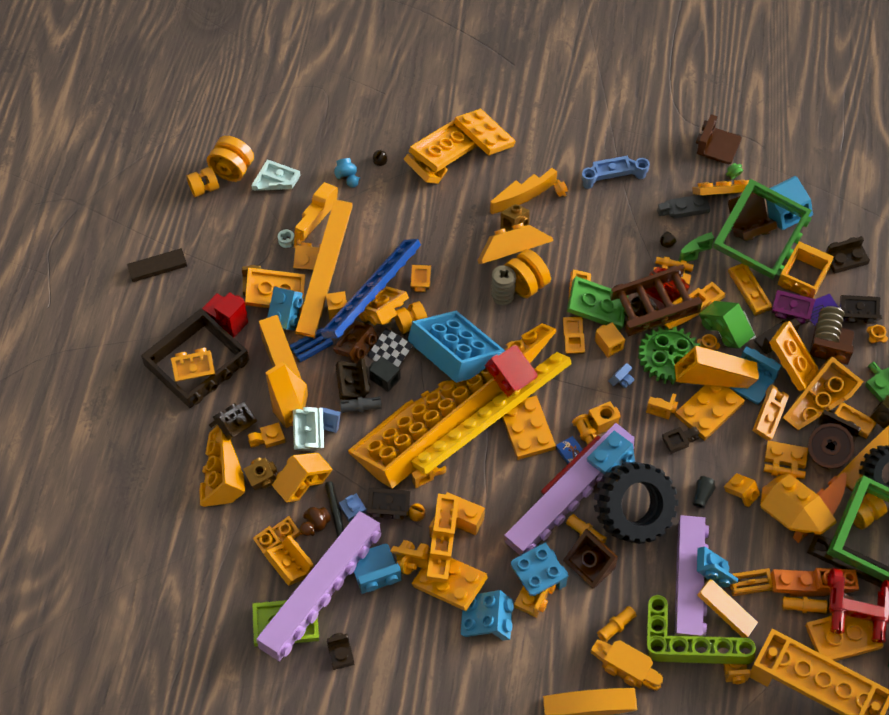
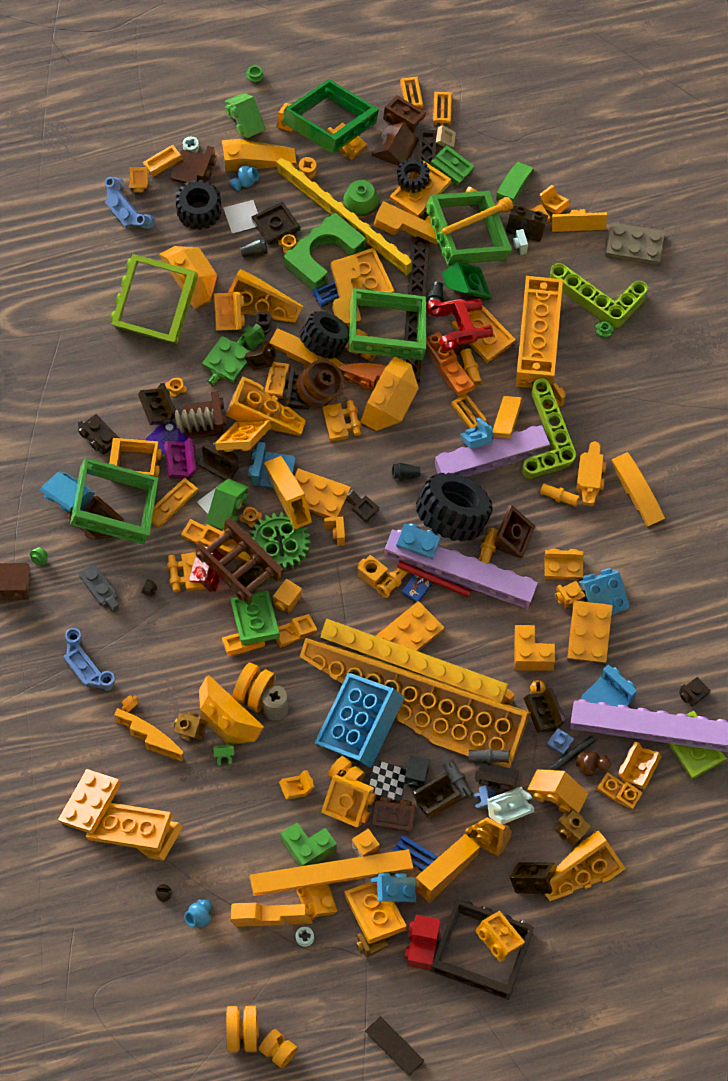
camera: 115 degrees left, 5 degrees up
(269, 435) = (527, 844): light orange plate -> none
(275, 177) = (236, 981): light aqua wing -> none
(343, 432) = (496, 775): none -> dark brown bracket
(359, 261) = (308, 850): none -> bright green brick
(366, 433) = (488, 756): none -> dark grey pin
(370, 289) = (336, 816): blue plate -> none
(409, 558) = (585, 658): light orange hips -> none
(442, 538) = (563, 643): light orange slope -> none
(480, 237) = (224, 751): none -> bright green tile
(501, 580) = (568, 594): none -> light orange bracket
(511, 370) = (375, 652): bracket -> none
(539, 570) = (547, 563): dark azure bracket -> none
(622, 376) = (321, 573): medium blue tile -> none
(692, 249) = (150, 561): bright green slope -> none
(721, 187) = (72, 554): light orange plate -> none
(744, 488) = (387, 443): light orange bracket -> none
(770, 413) = (301, 443): light orange plate -> none

